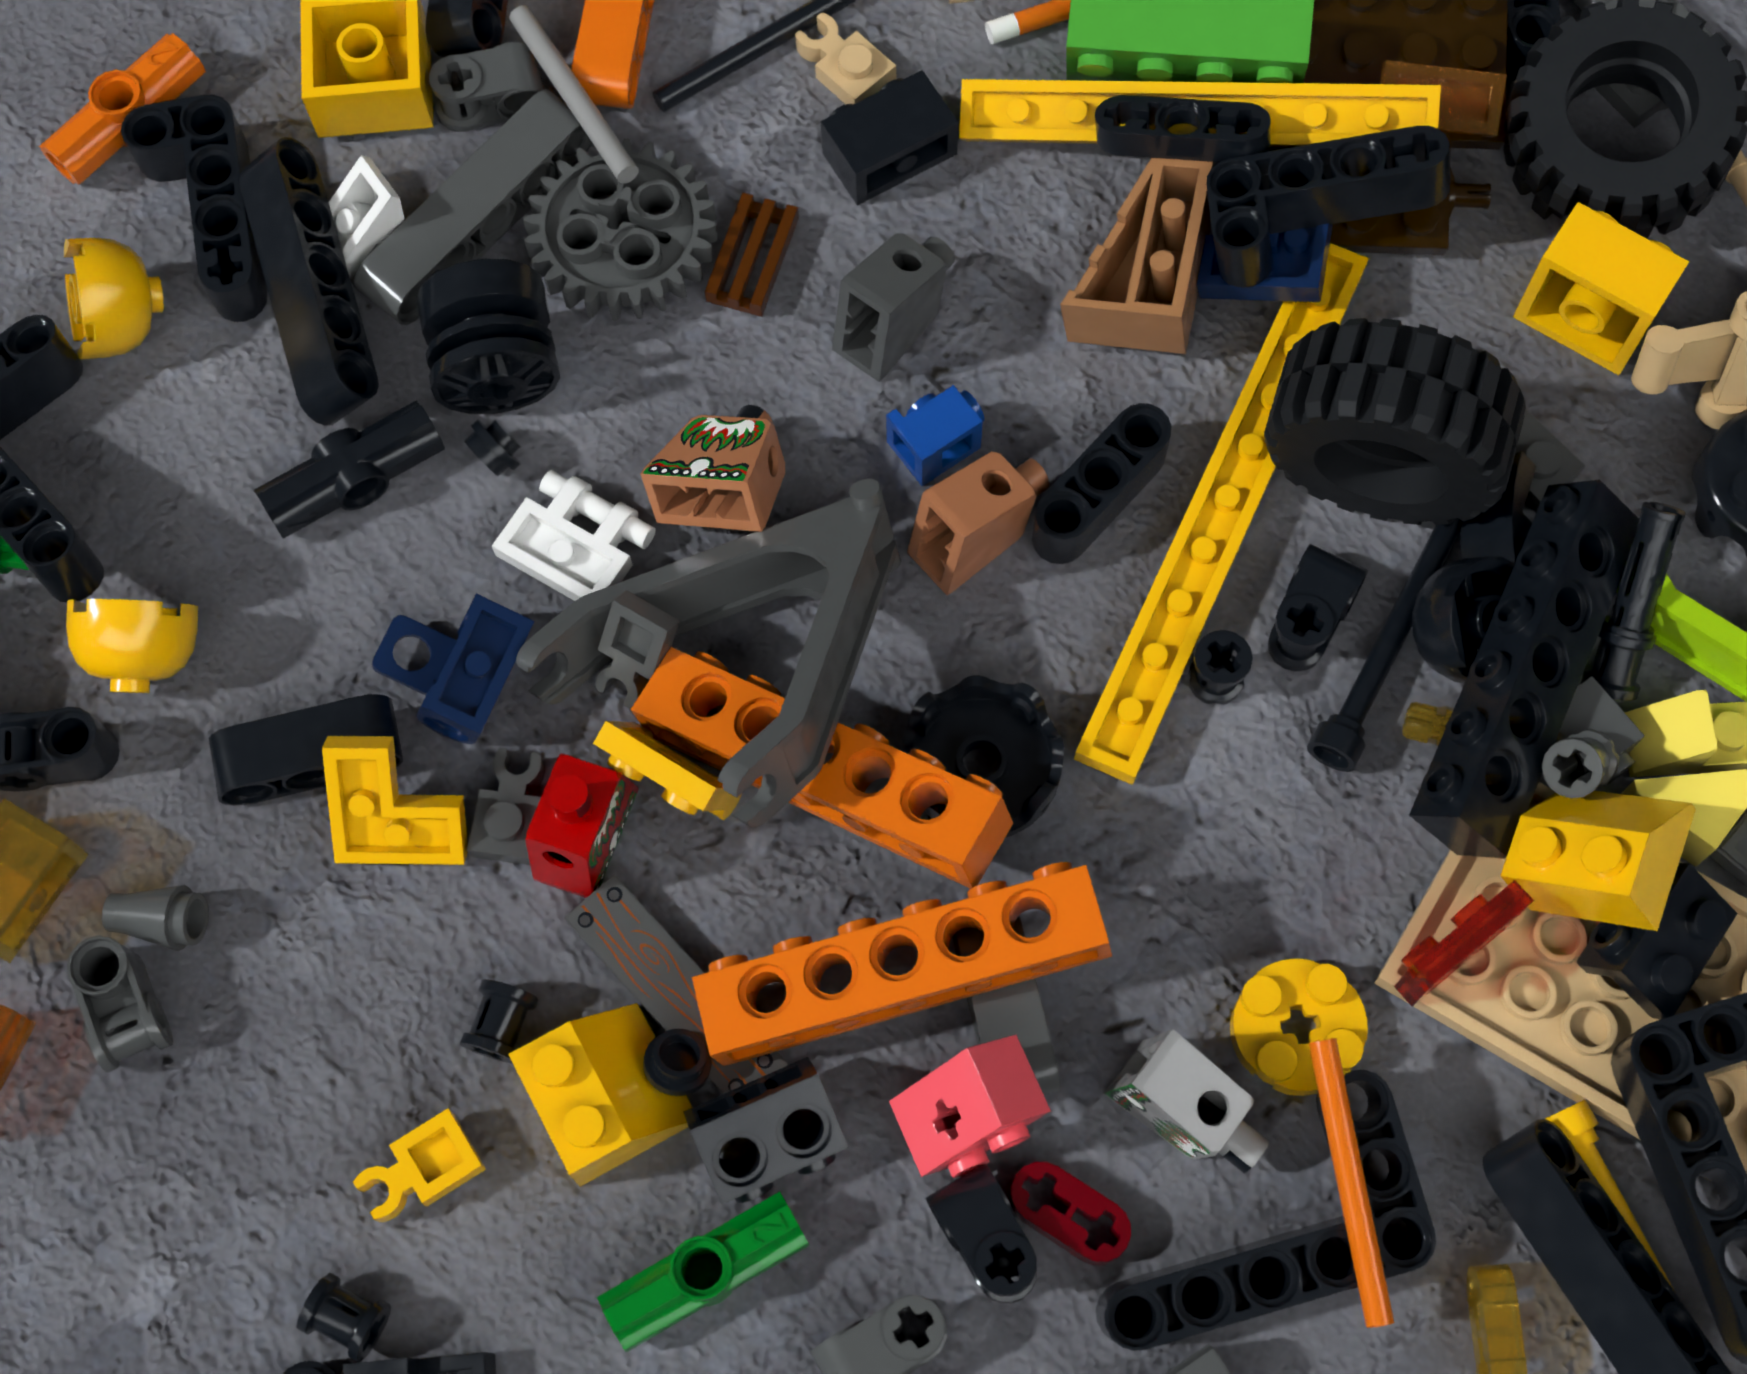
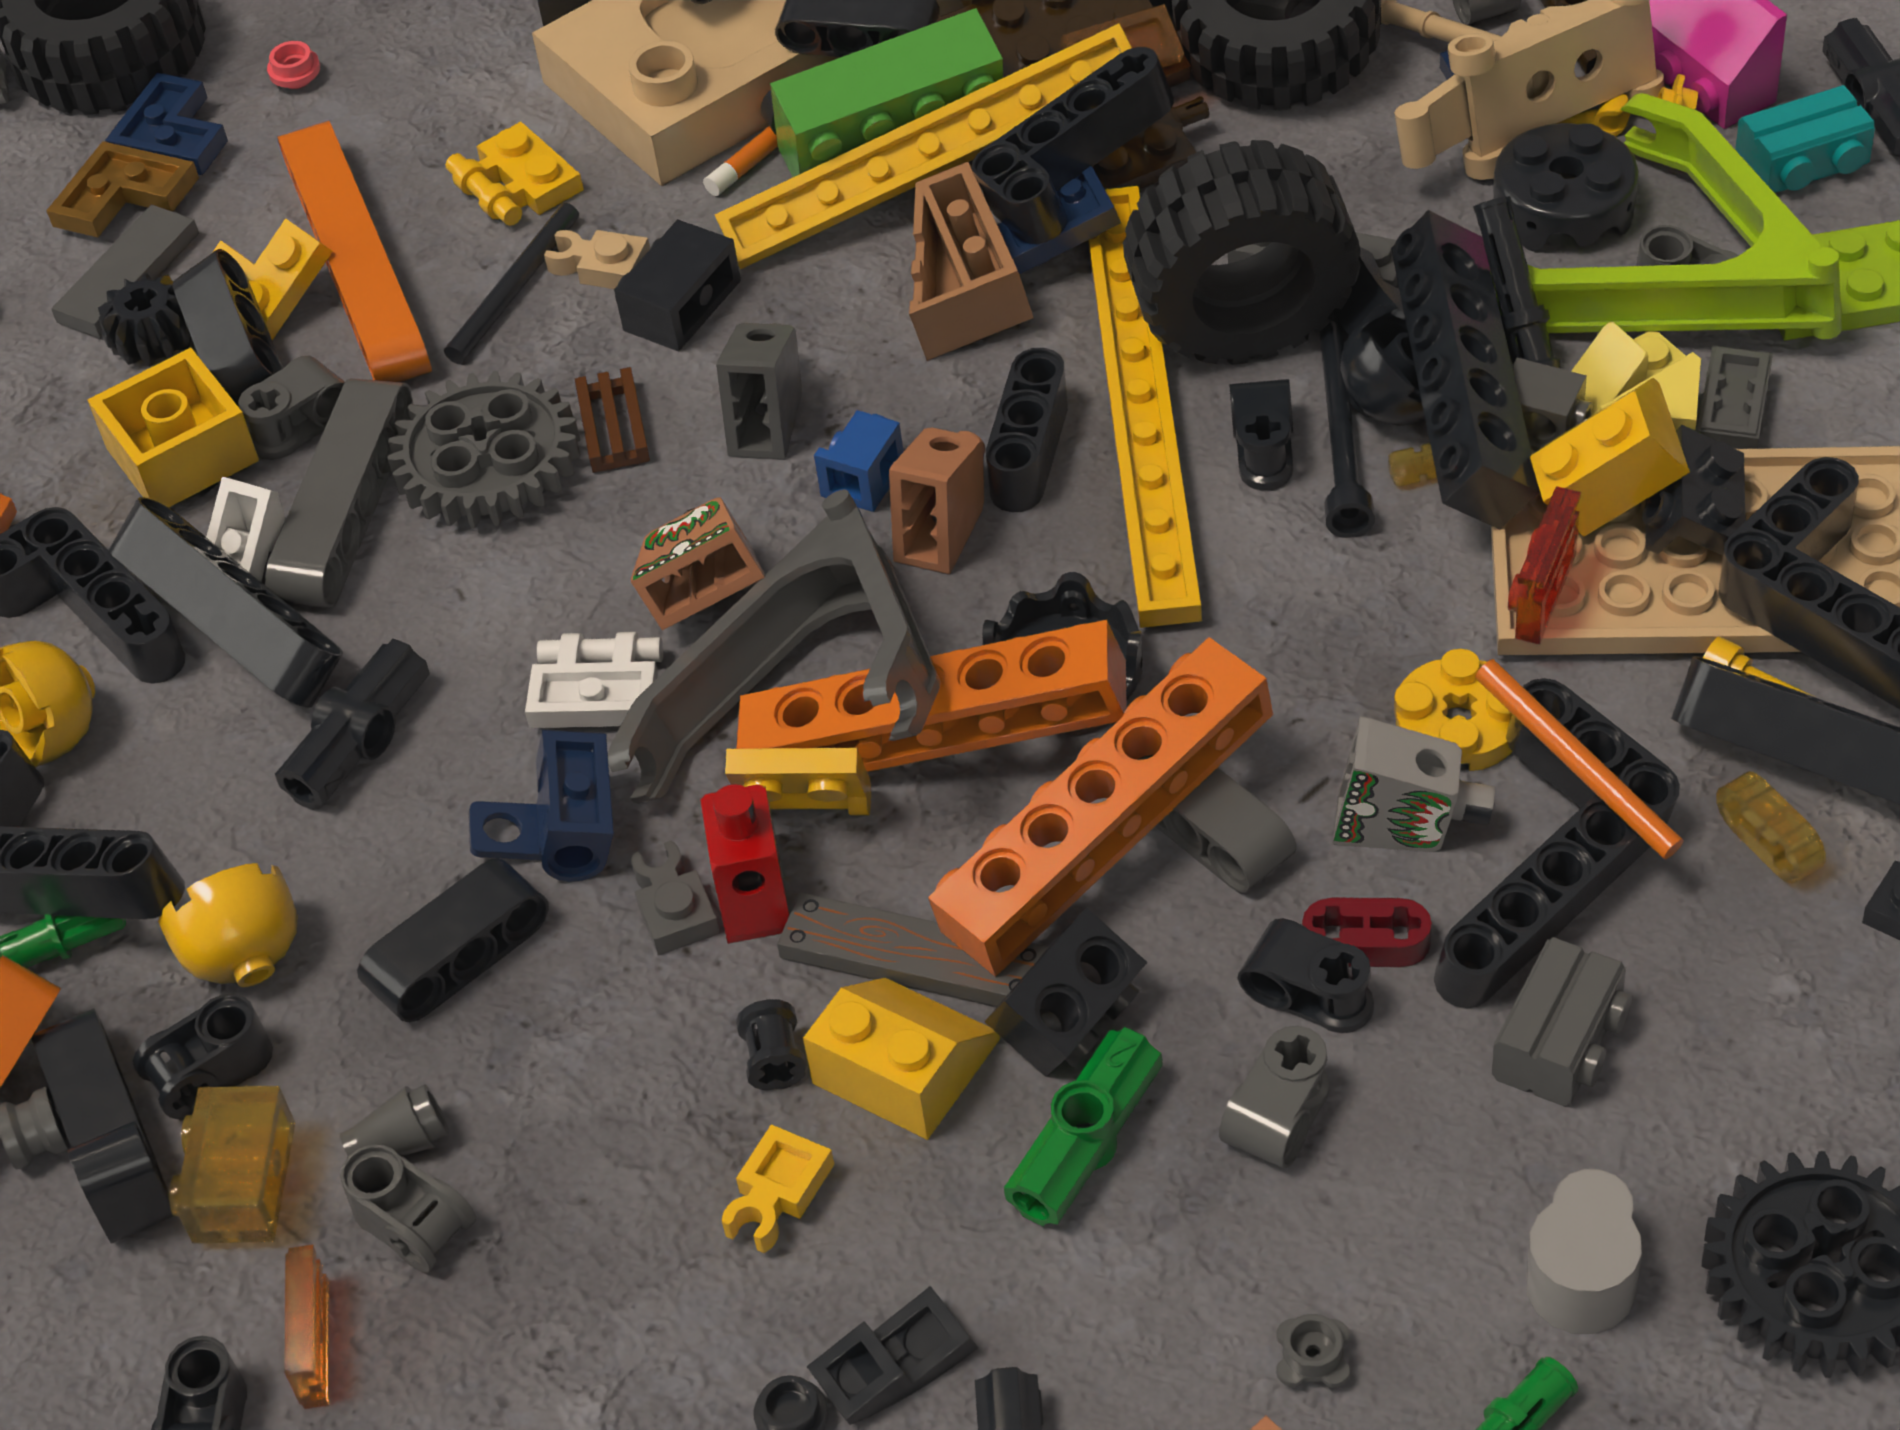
camera: 25 degrees left, 20 degrees down
(343, 1317) = (782, 1329): black bush -> none
(375, 821) = (559, 954): yellow plate -> none
(488, 336) = (422, 560): black wheel -> none
(493, 446) = (475, 648): black plate -> none
(574, 94) = (381, 366): light grey bar -> none
(637, 641) = (706, 705): dark grey plate -> none
(677, 1062) = (954, 983): black plate -> none
(970, 1106) = (1230, 876): coral brick -> none
(1201, 145) = (926, 152): black beam -> none
(1217, 650) = (1216, 502): black bush -> none
(1560, 767) = (1536, 393): dark grey bush -> none
(1599, 287) = (1340, 111): yellow brick -> none

